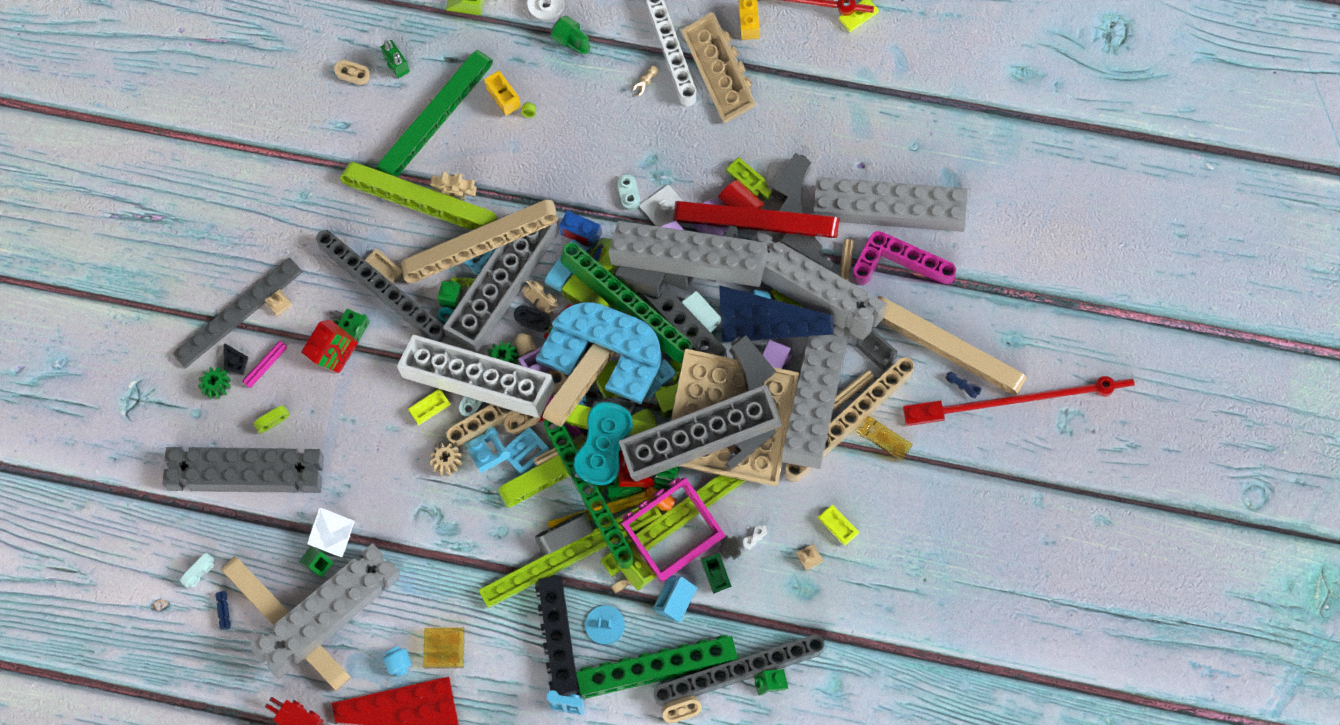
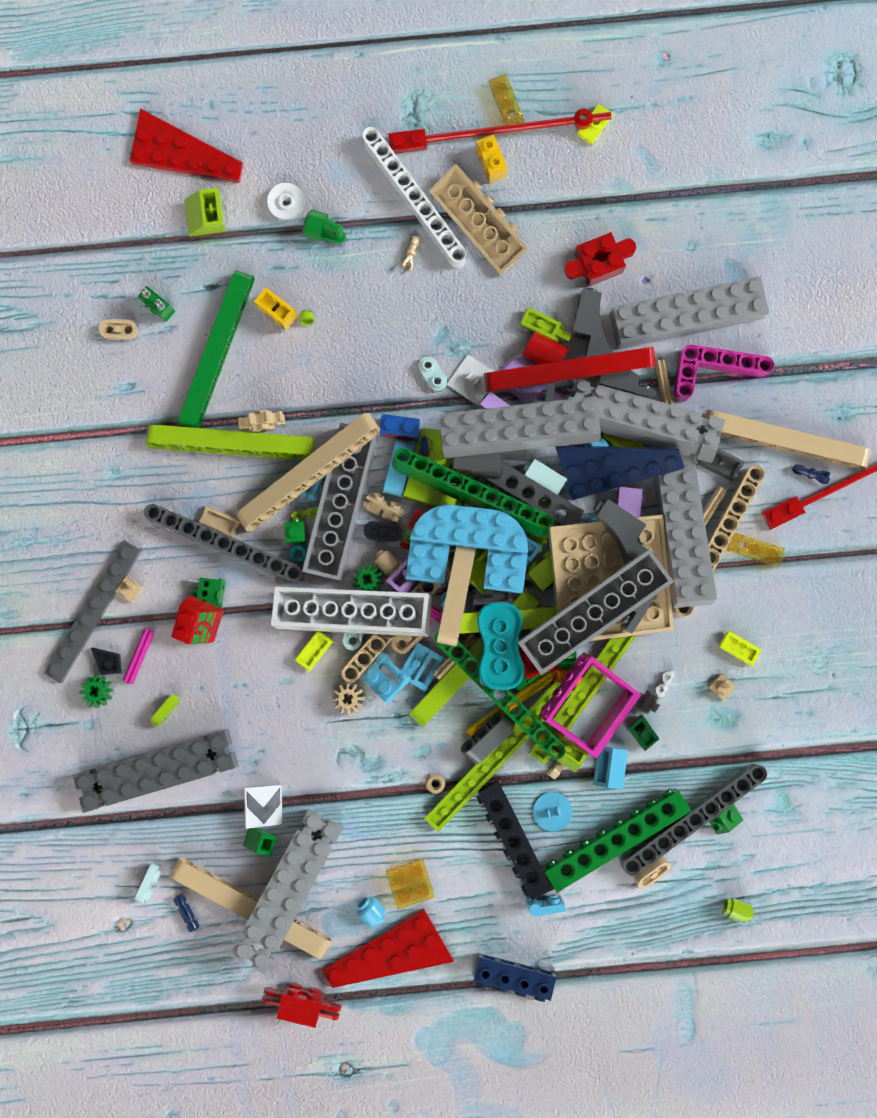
camera: 25 degrees left, 15 degrees up
(500, 557) = (439, 788): none -> tan plate
(817, 140) = (600, 259): none -> red brick

